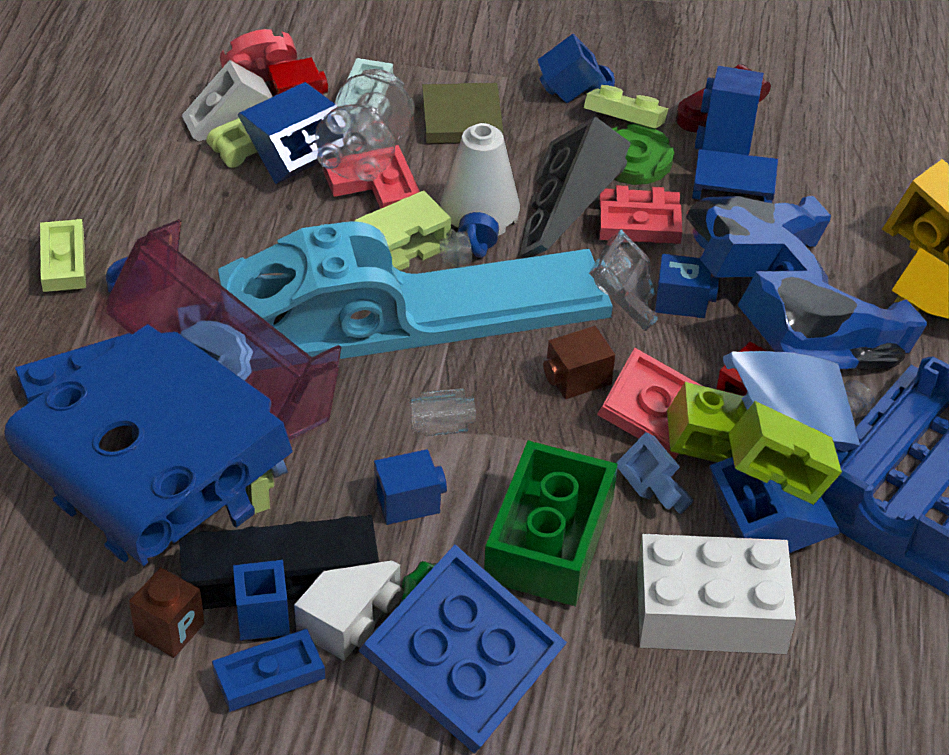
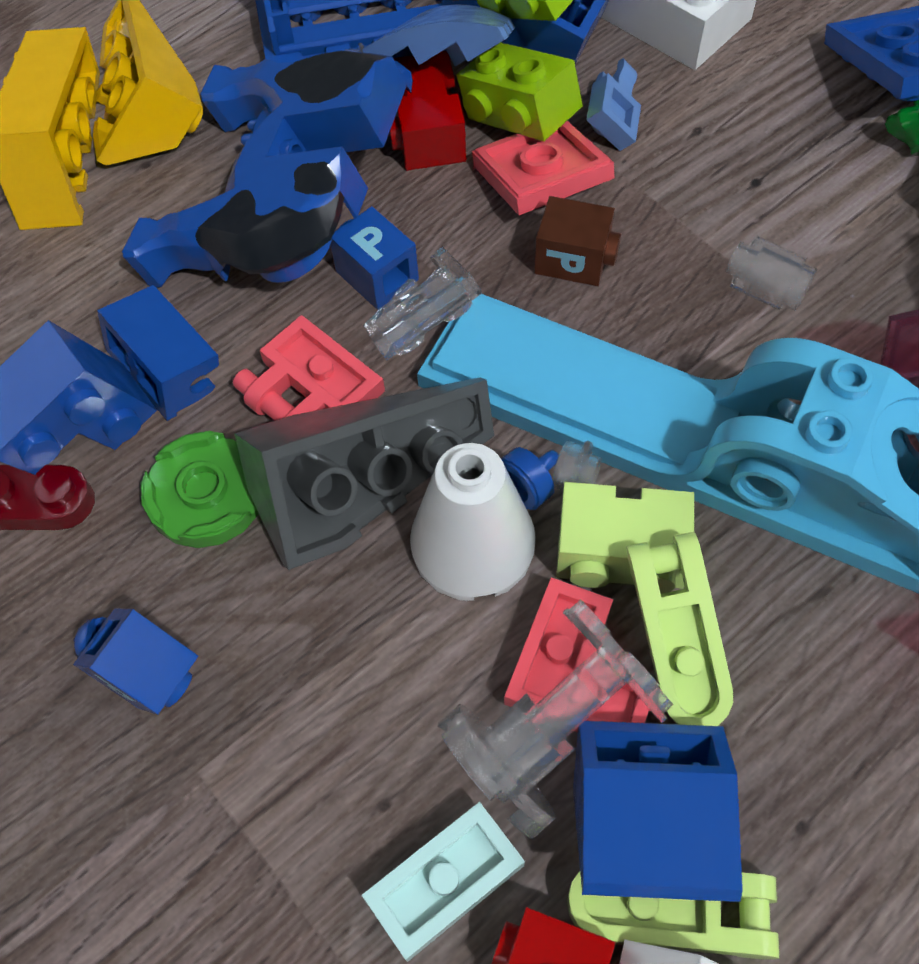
camera: 135 degrees left, 15 degrees up
(341, 197) = (683, 631): none -> yellowish green plate
(408, 486) = (868, 218): blue brick -> none
(455, 107) = (340, 728): olive tile -> none
(550, 522) = (764, 96): green brick -> none
(642, 110) = (136, 554): yellowish green plate -> none

